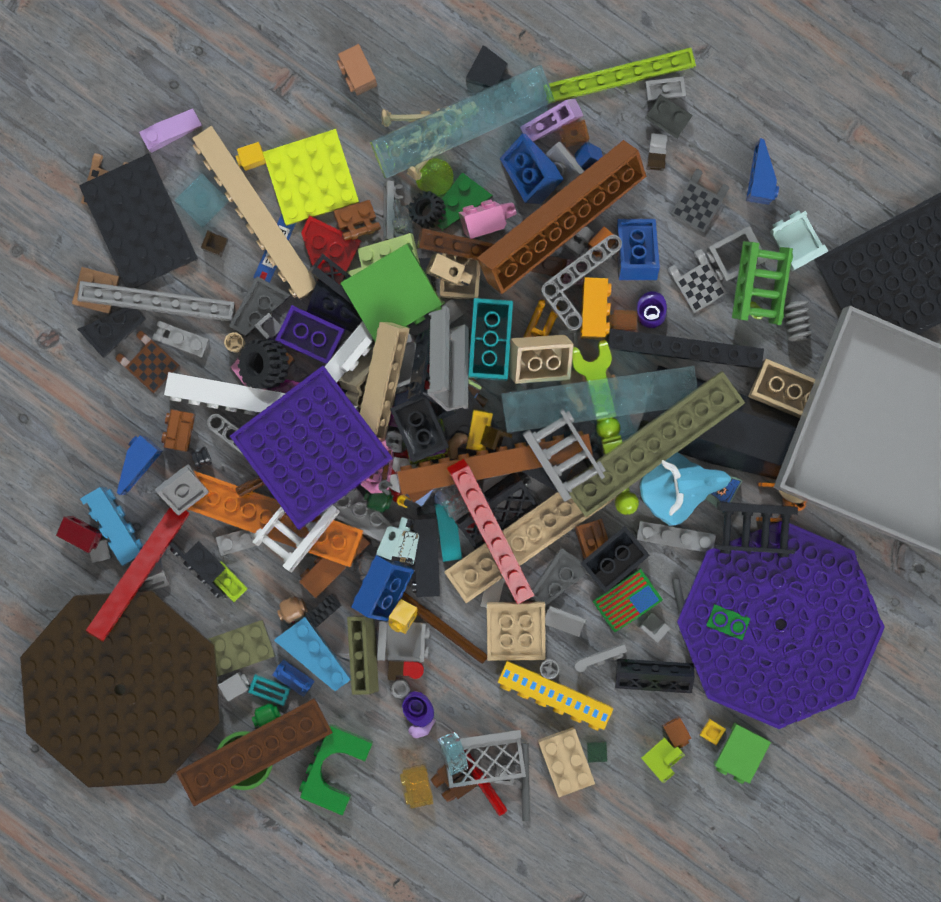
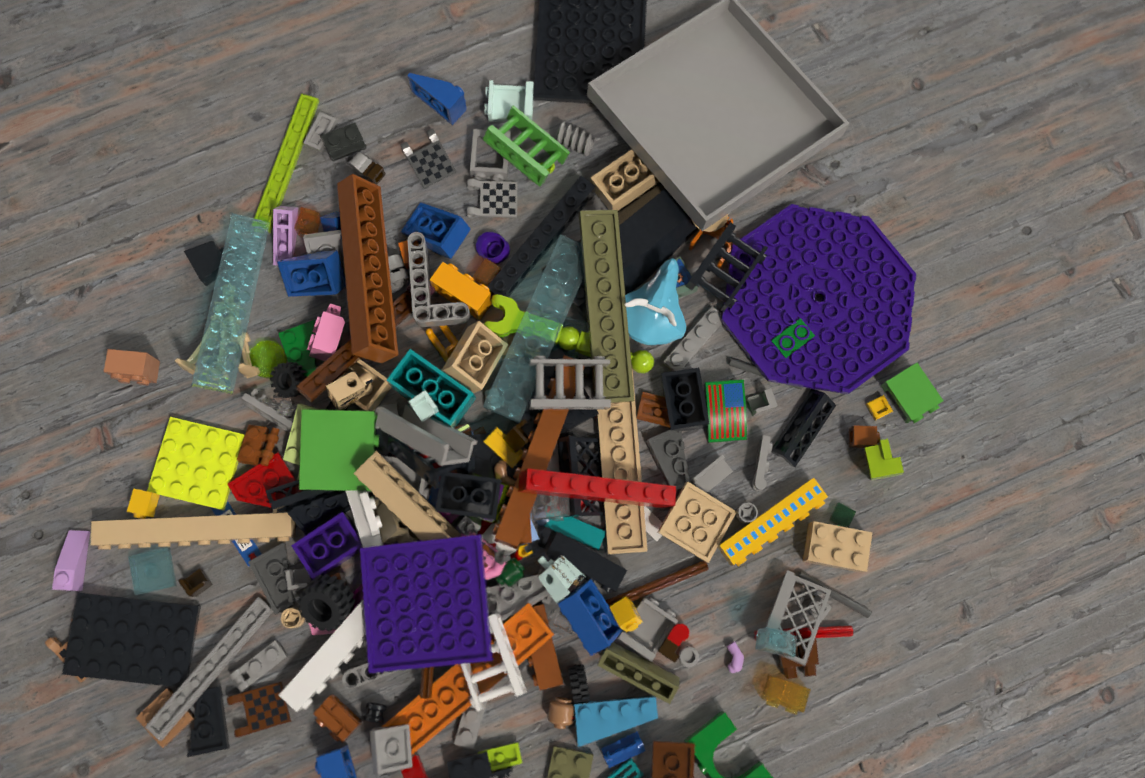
camera: 65 degrees left, 10 degrees down
(418, 709) = (716, 651): dark purple hat -> none
(470, 345) = (423, 406): none -> light aqua panel

